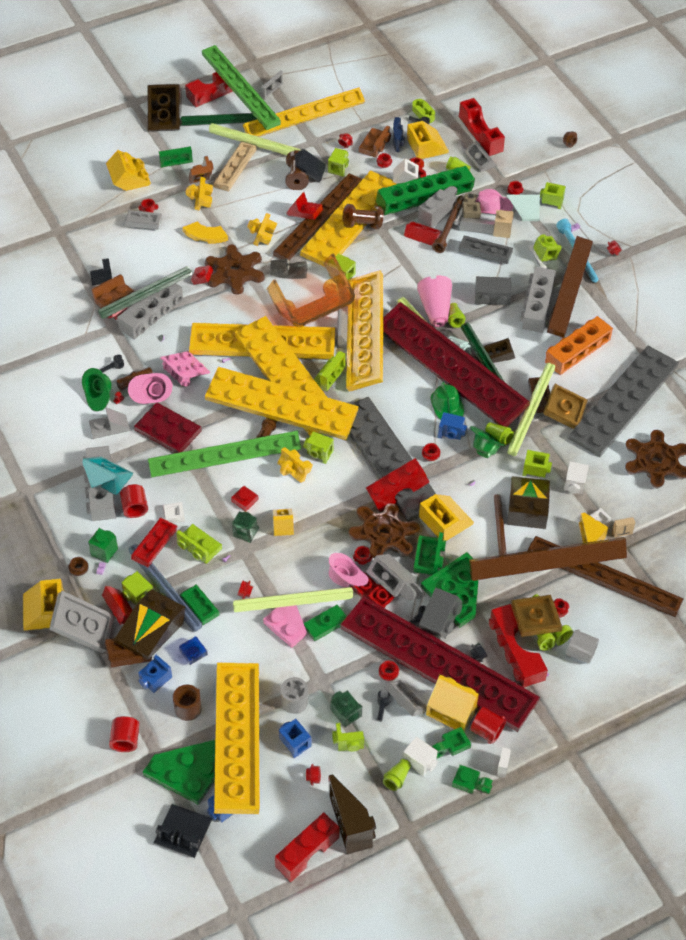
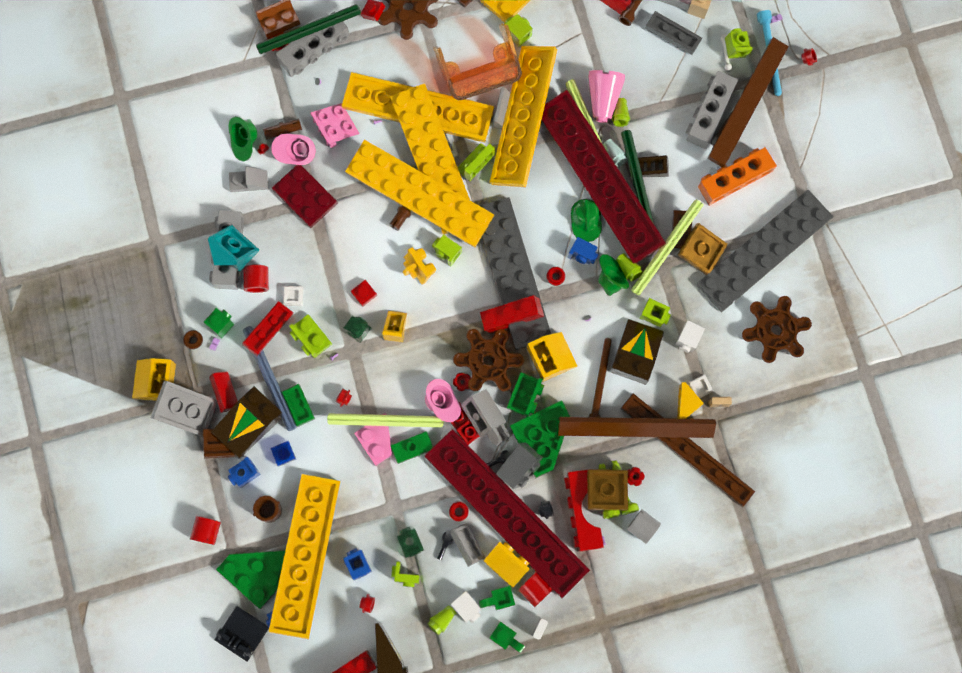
camera: 10 degrees right, 25 degrees up
(117, 362) = (270, 105): black hand -> none
(135, 587) = (242, 377): lime brick -> none
(223, 454) = (353, 239): bright green plate -> none
(283, 269) = (460, 18): clear smoke slope -> none
(294, 695) = (365, 522): light grey piece -> none
(493, 290) = (667, 89): dark grey brick -> none

